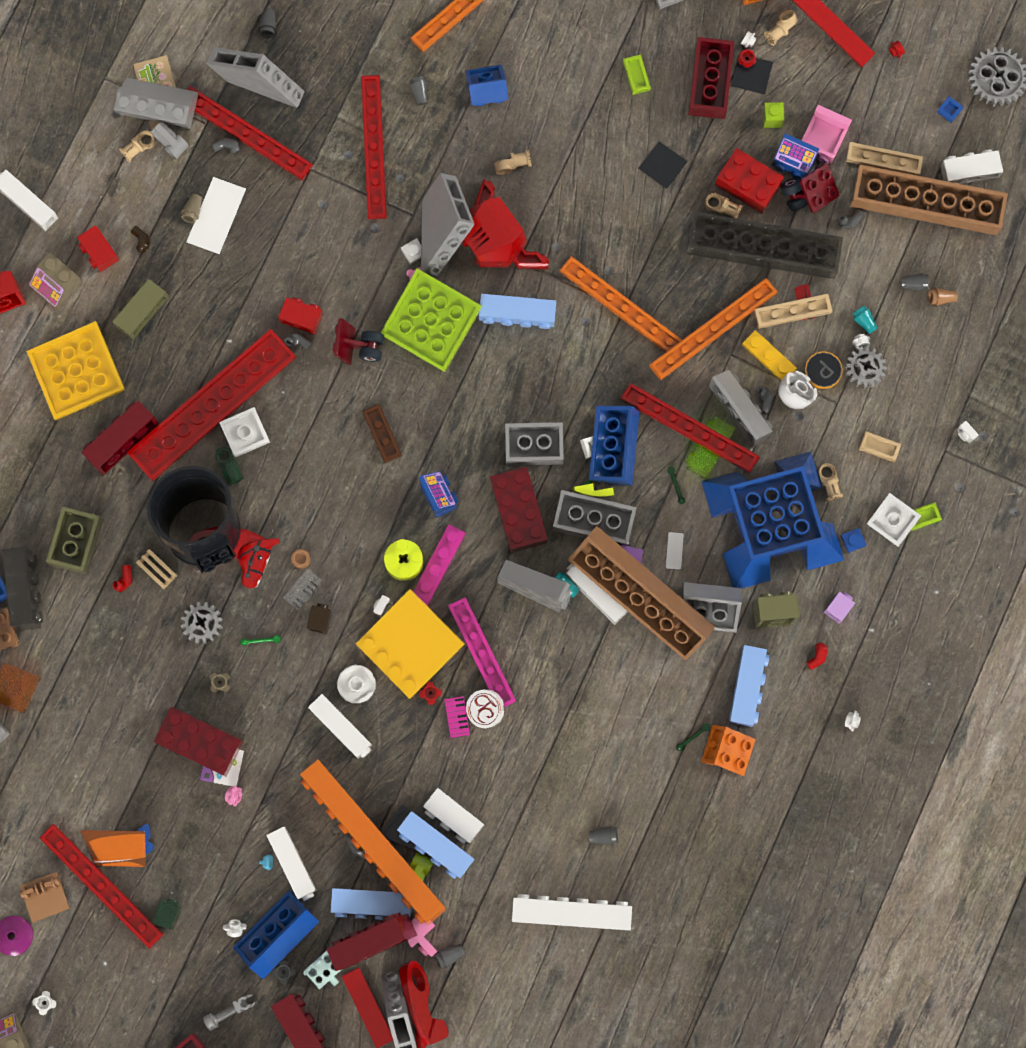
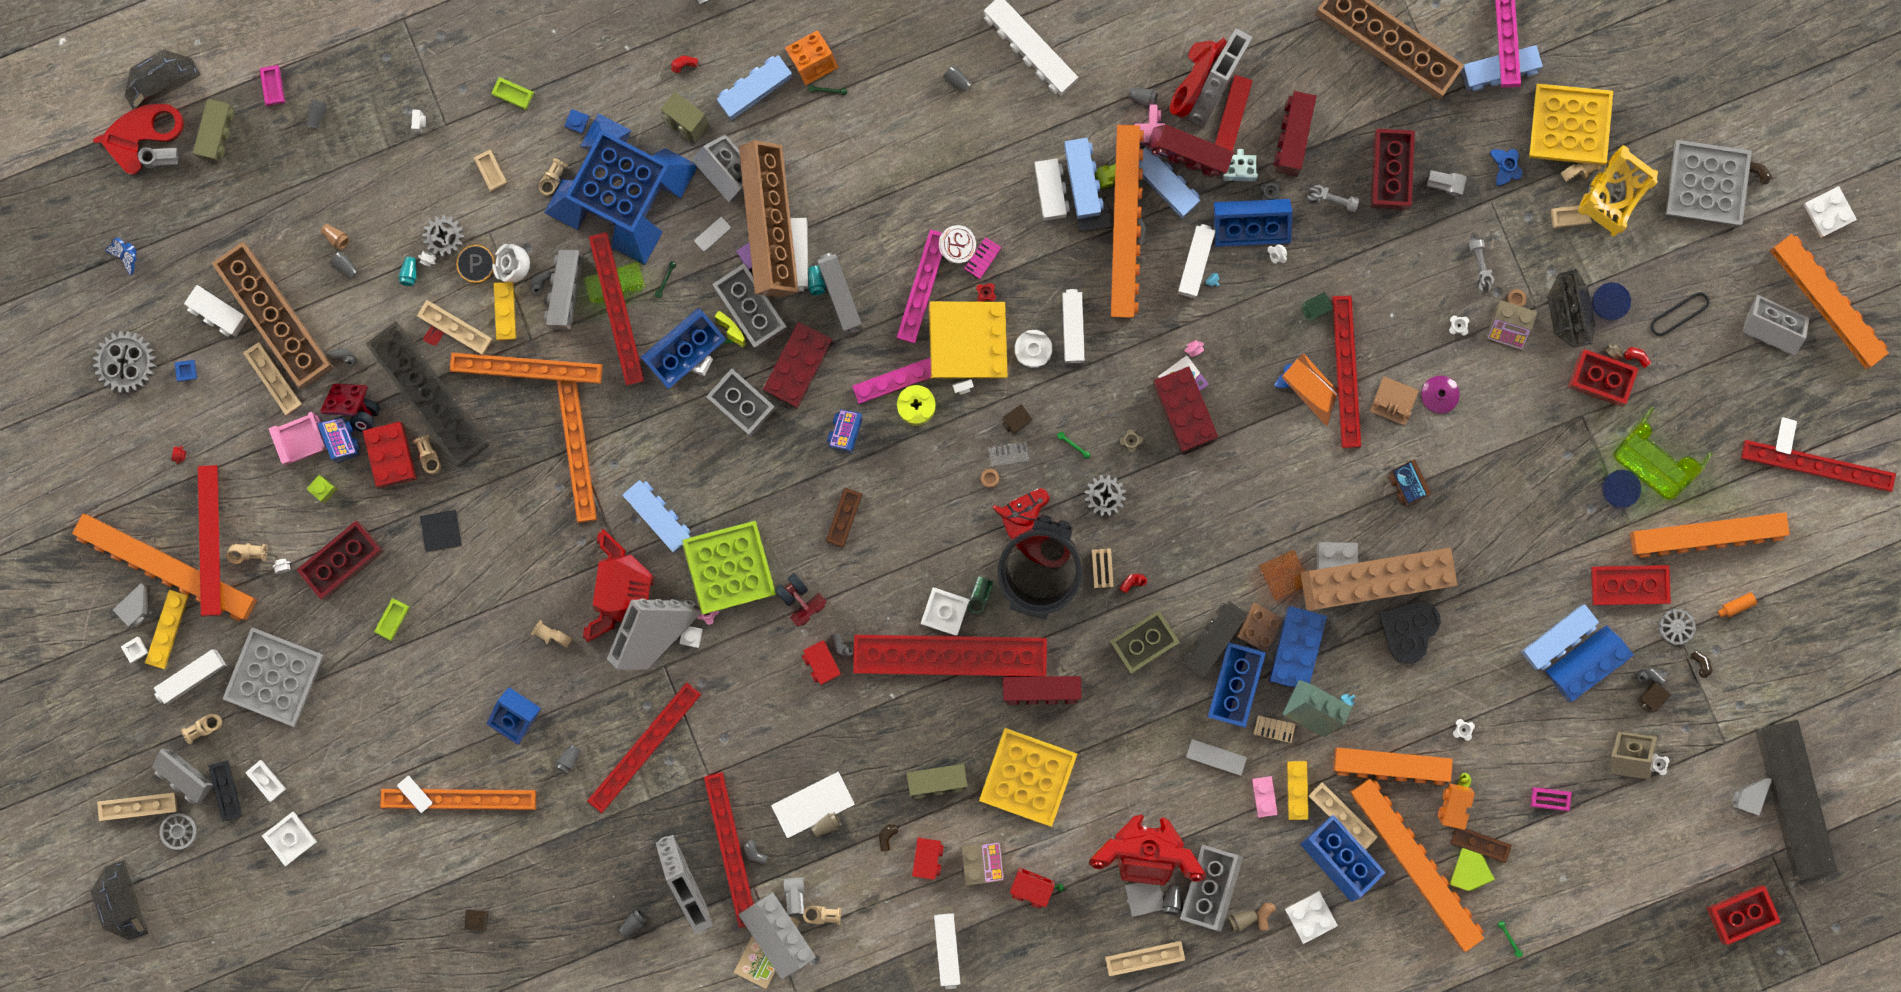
camera: 135 degrees left, 5 degrees up
(746, 54) = (292, 553): red plate -> none
(754, 77) = (304, 539): black sticker -> none
(839, 607) = (634, 82): lavender brick -> none
(894, 519) = (534, 107): white plate -> none

